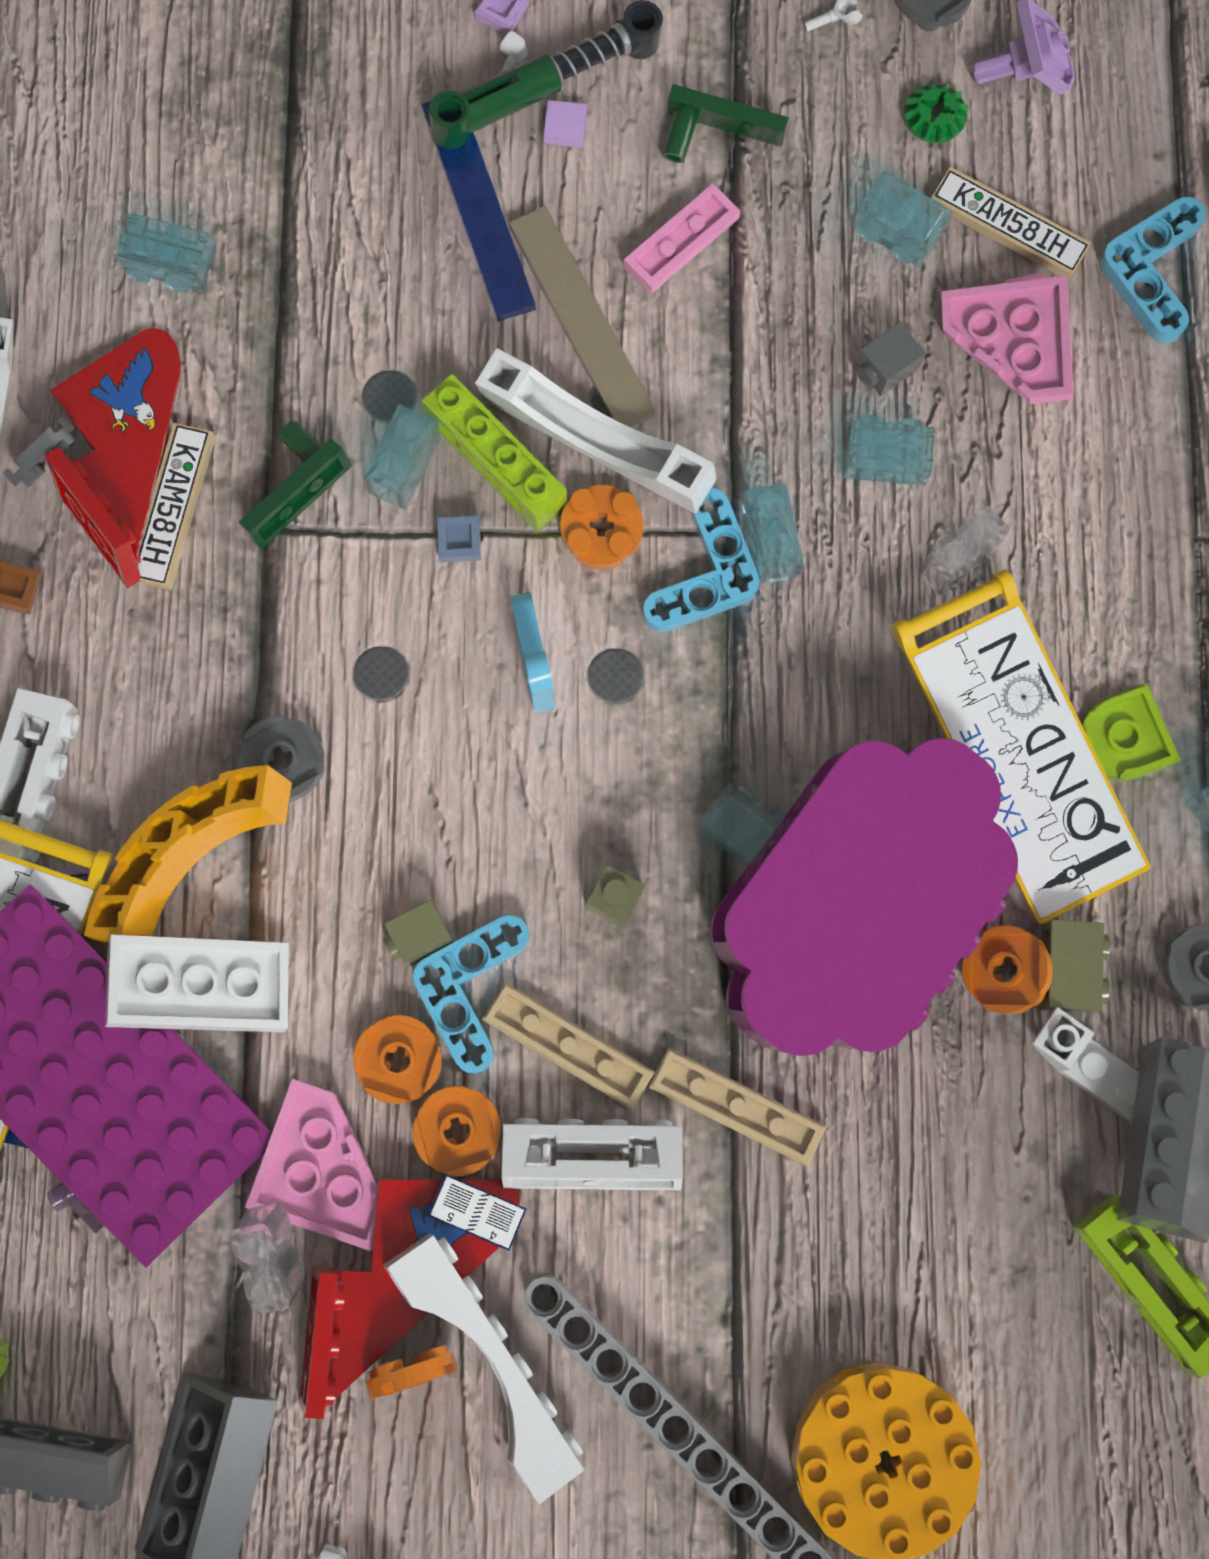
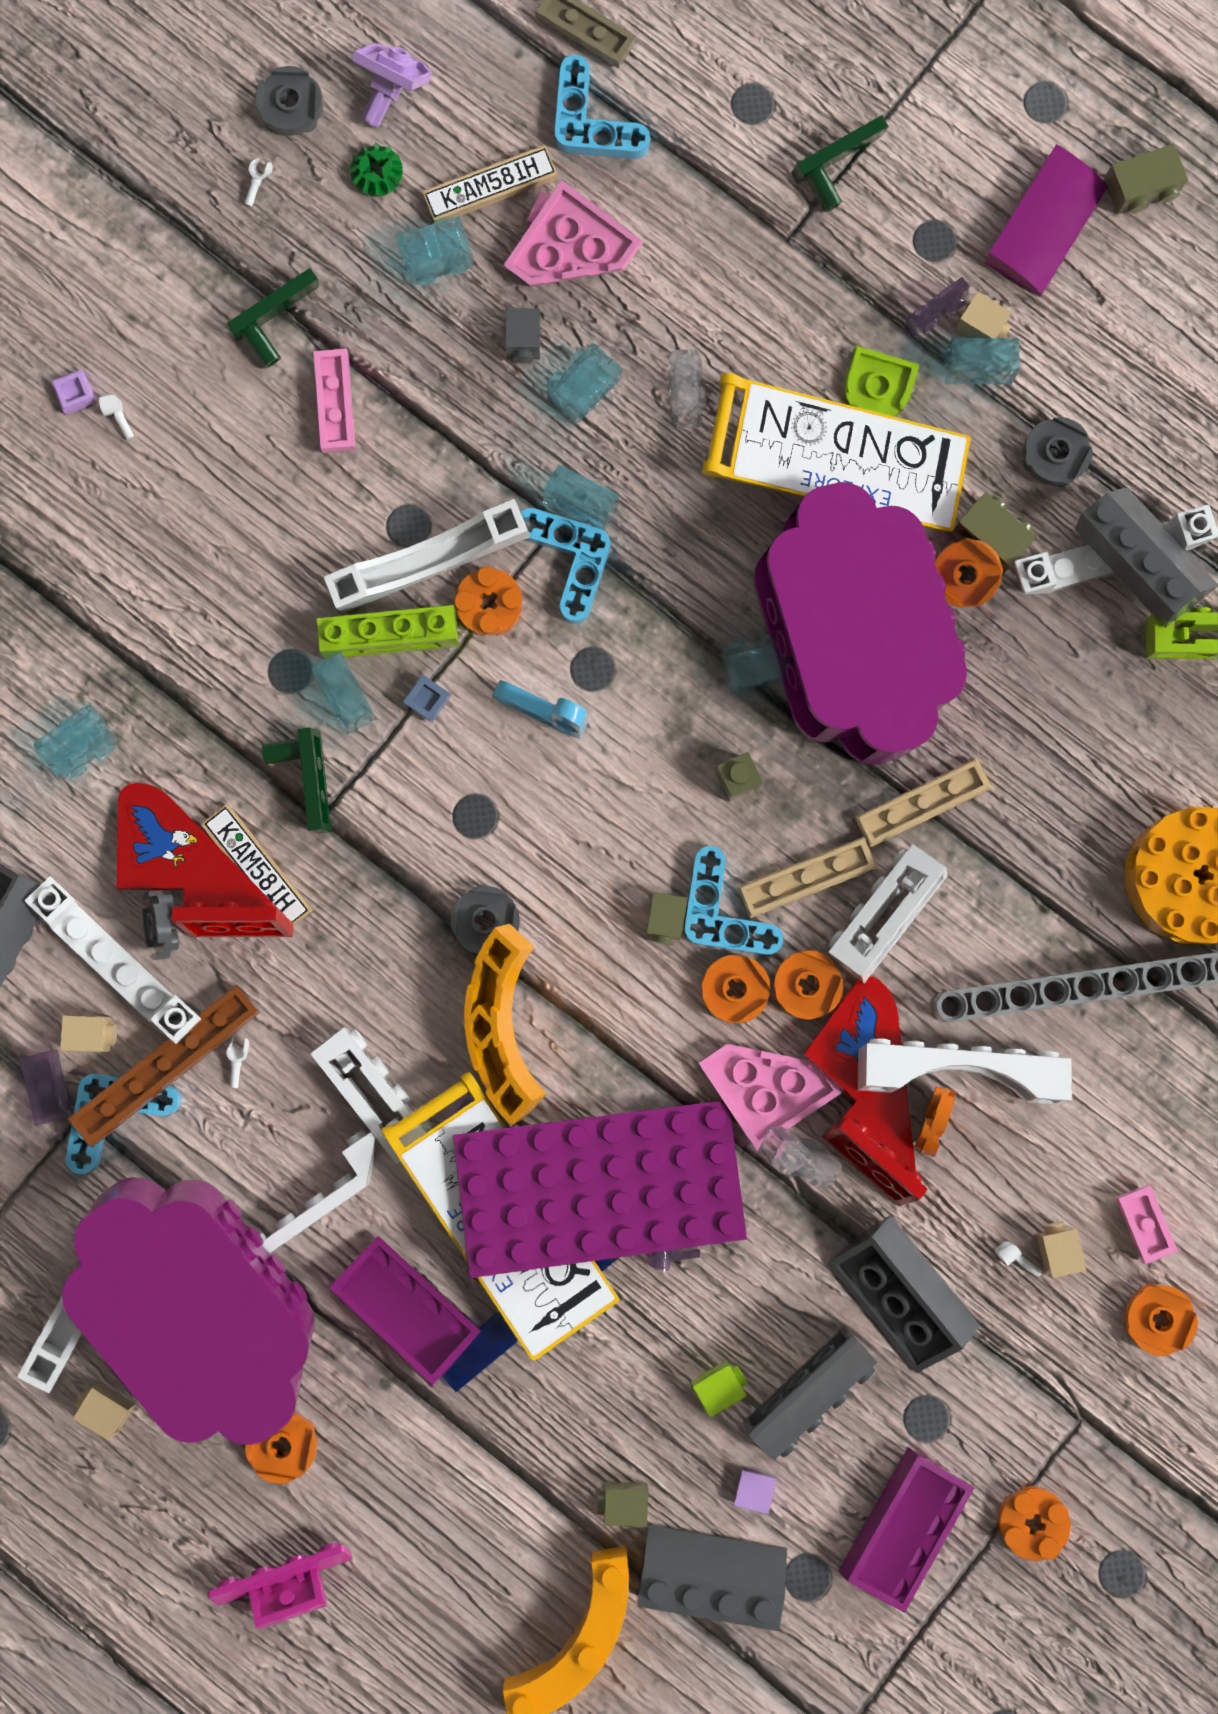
camera: 55 degrees left, 5 degrees up
(196, 984) = (595, 1077): white plate -> none
(476, 1211) = (867, 1009): white tile -> none
(485, 227) = (204, 514): clear blue tile -> none
(540, 77) = (150, 403): piece -> none
(565, 123) = (191, 413): lavender tile -> none
(581, 318) = (336, 507): dark tan tile -> none

